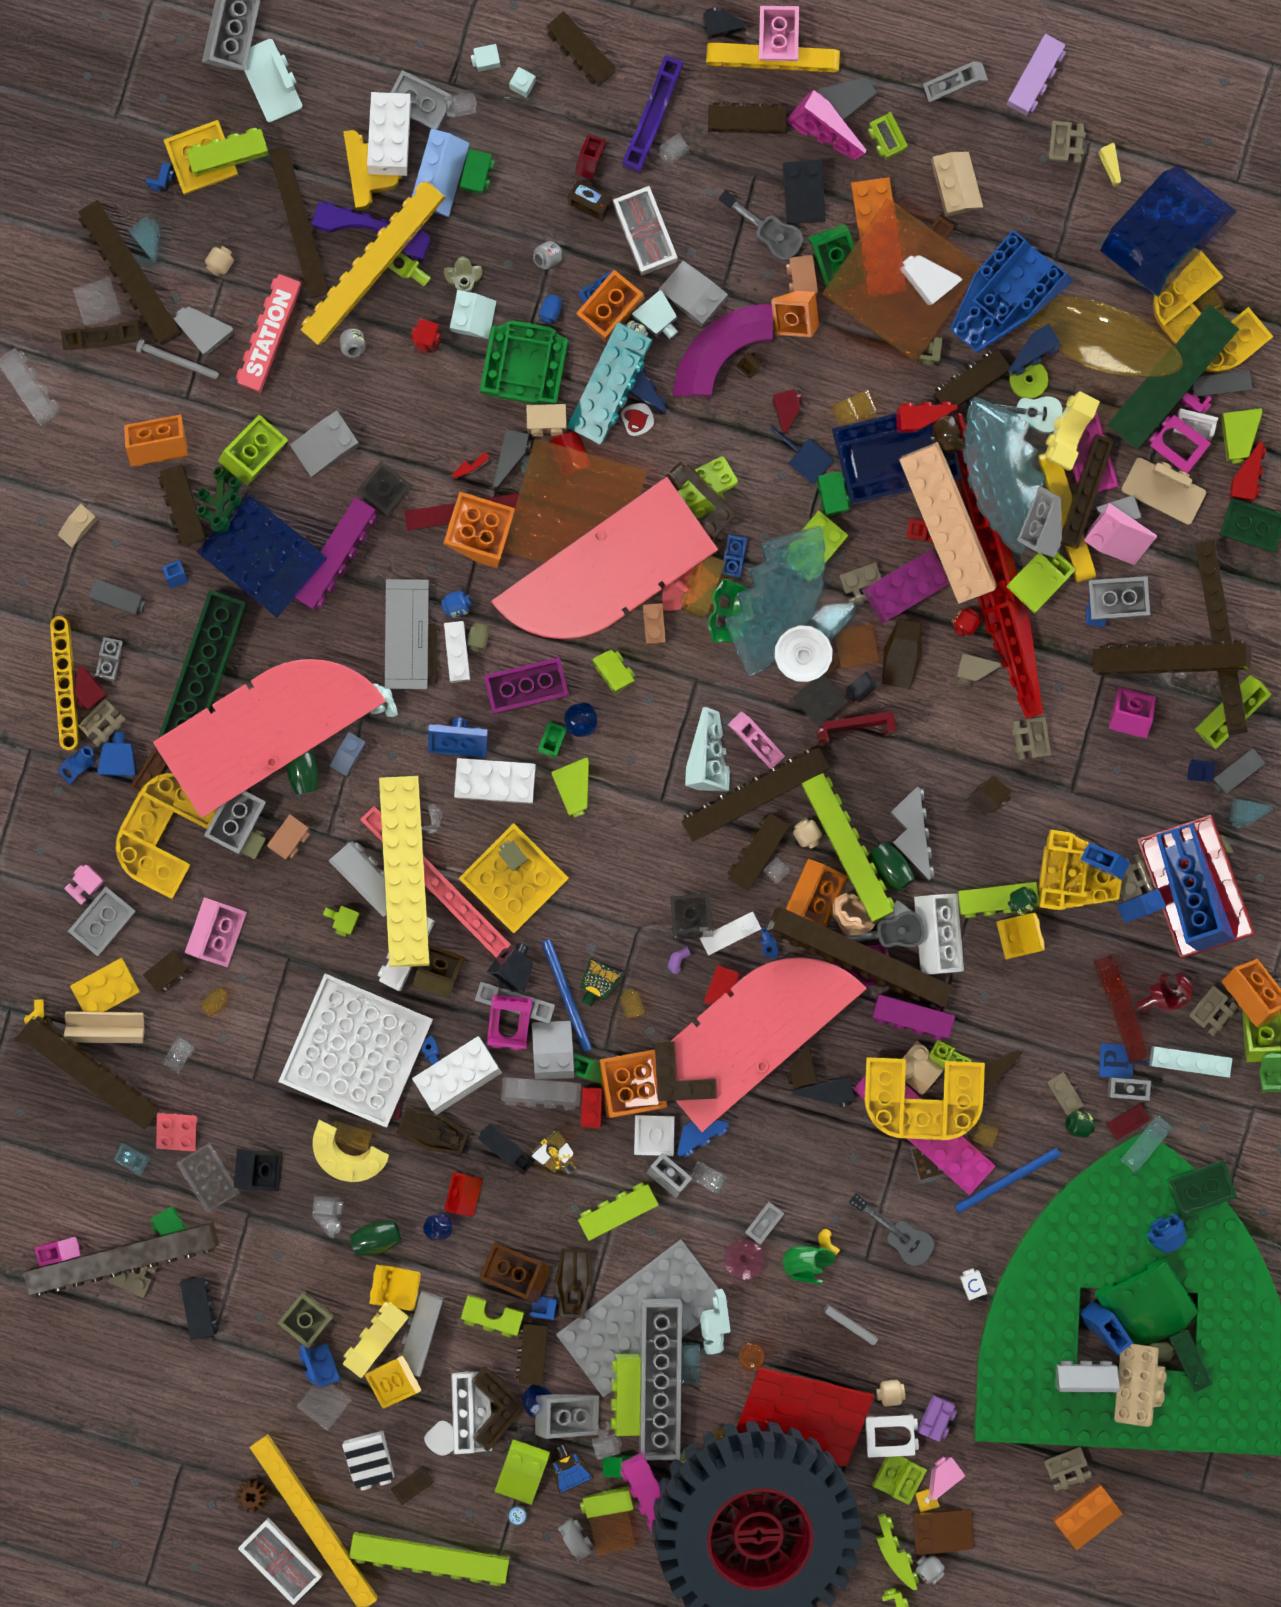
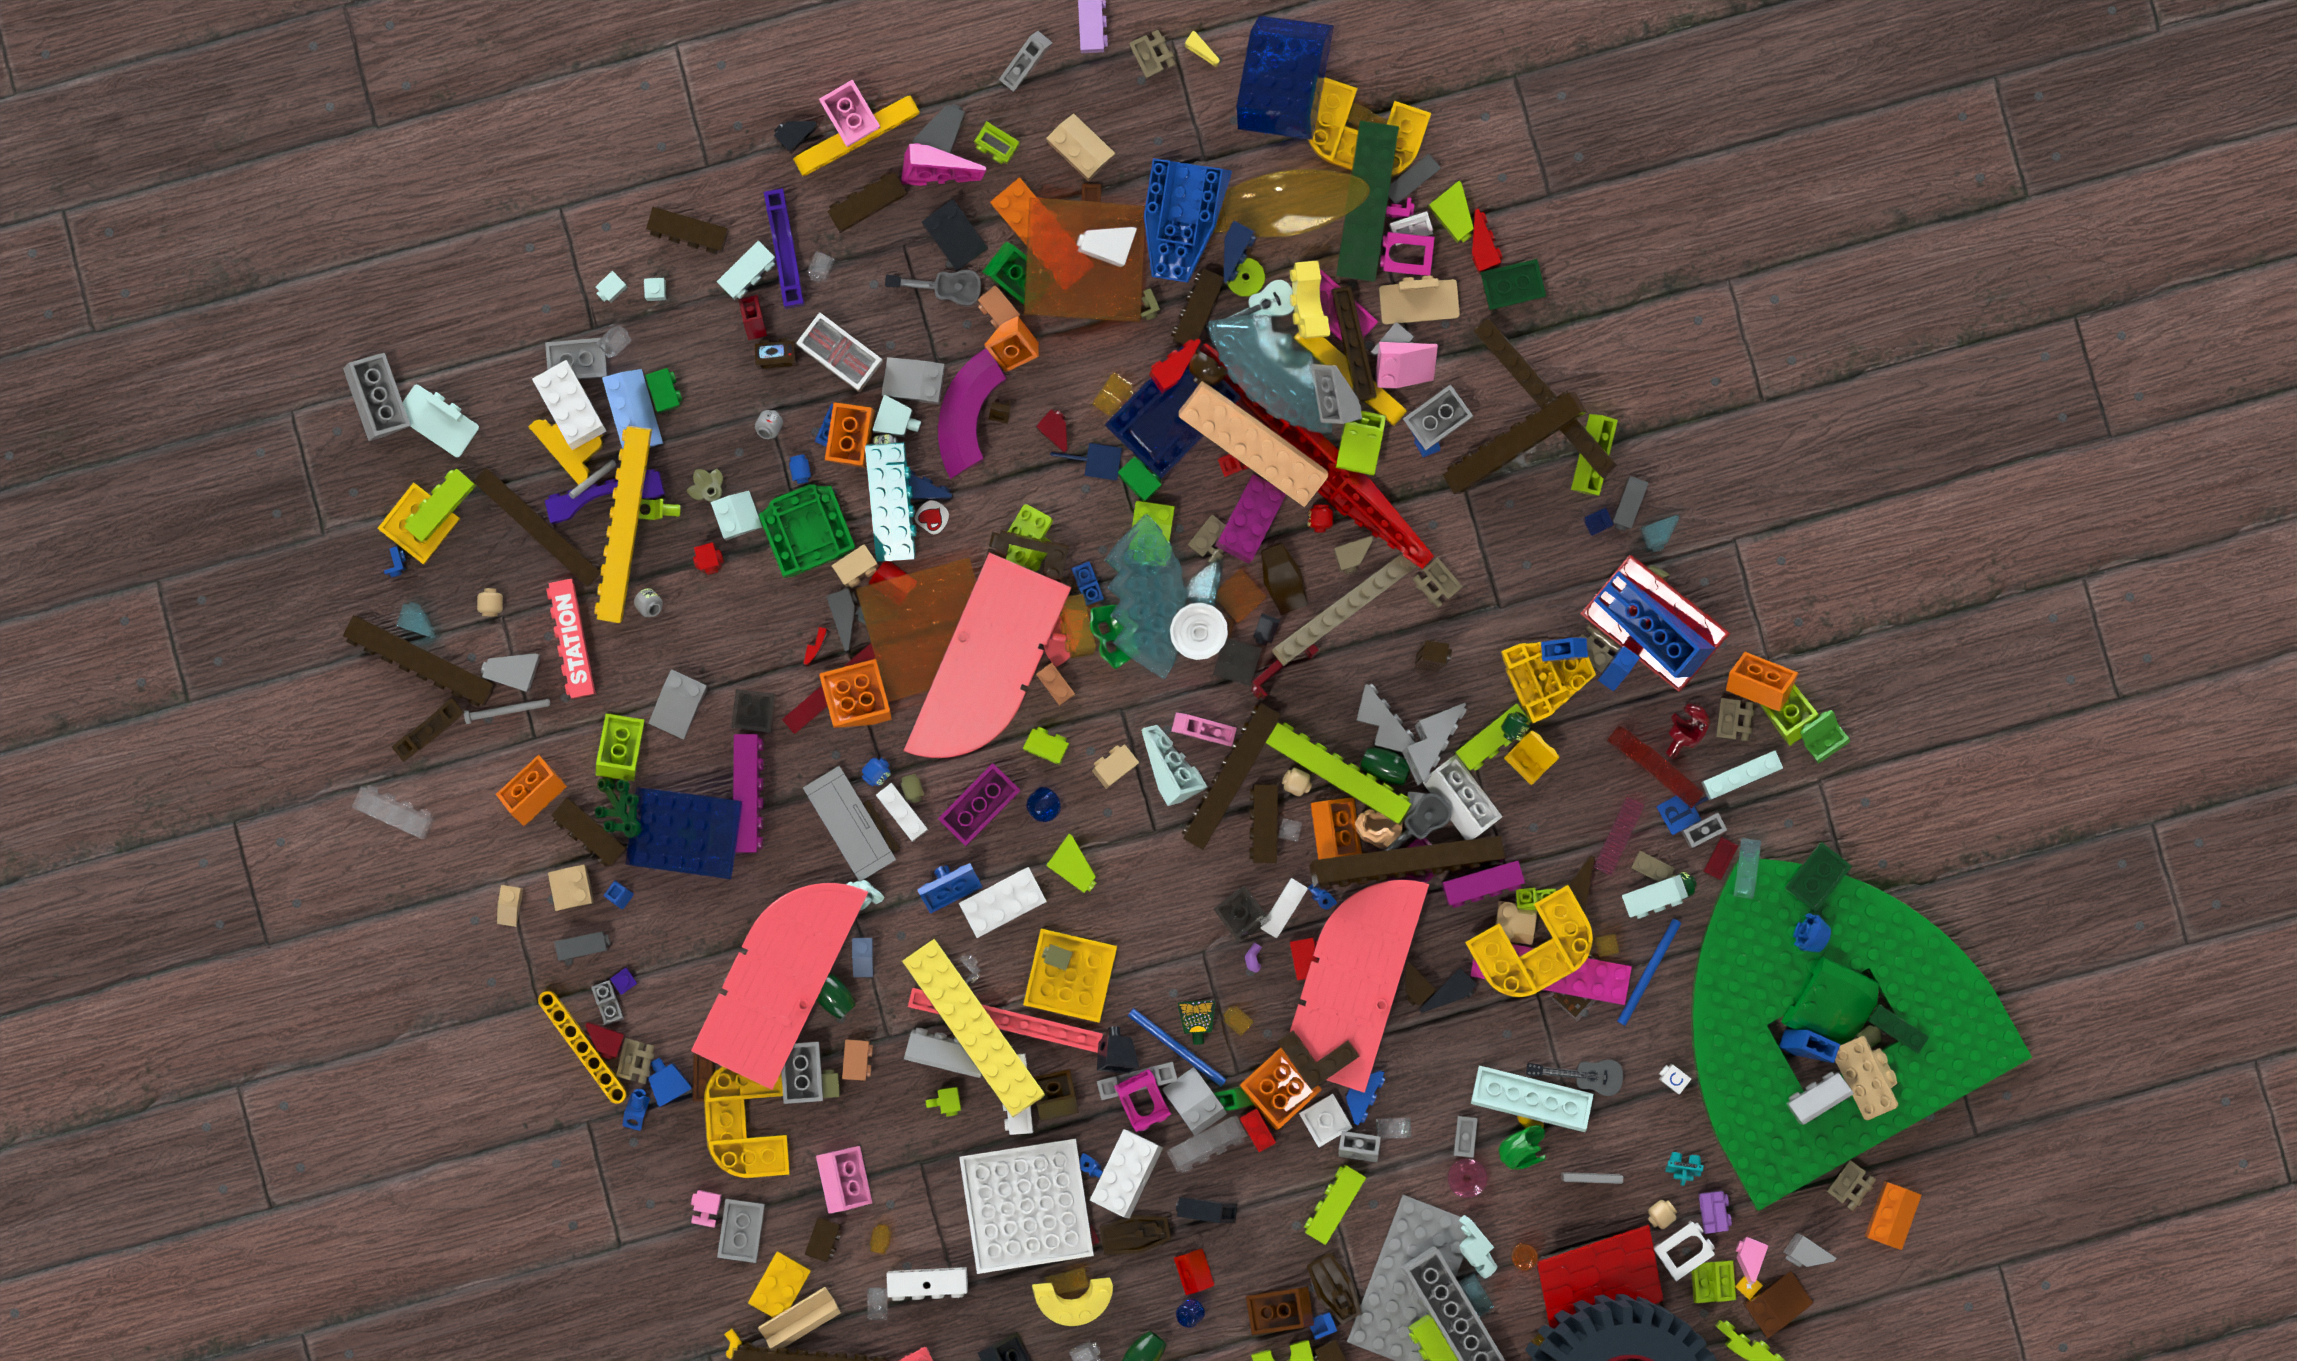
camera: 30 degrees left, 0 degrees up
(97, 301) = (406, 702): clear tile -> none
(134, 649) = (623, 981): none -> dark purple plate
(138, 543) = (571, 887): none -> tan slope
(205, 659) = (691, 952): dark green brick -> none
(219, 1055) = (912, 1283): none -> white brick
(370, 209) = (592, 479): none -> light grey bar
(552, 740) = (1029, 837): green slope -> none
(554, 1153) = (1250, 1188): torso -> none
(609, 114) = (747, 271): none -> light aqua brick
(661, 724) = (1115, 765): none -> tan brick
(841, 1226) = (1532, 1098): none -> light aqua plate
(930, 1569) = (1787, 1343): light grey head -> none
(932, 1367) = (1682, 1170): none -> teal hips
(937, 709) = (1343, 609): none -> dark tan plate
(948, 865) = (1433, 735): none -> light grey slope
(993, 1500) = (1805, 1252): none -> light grey slope
(1052, 1119) = (1655, 897): none -> light aqua brick
(1053, 1048) = (1618, 836): none -> clear pink gear
(1132, 712) = (1509, 507): dark pink slope -> none

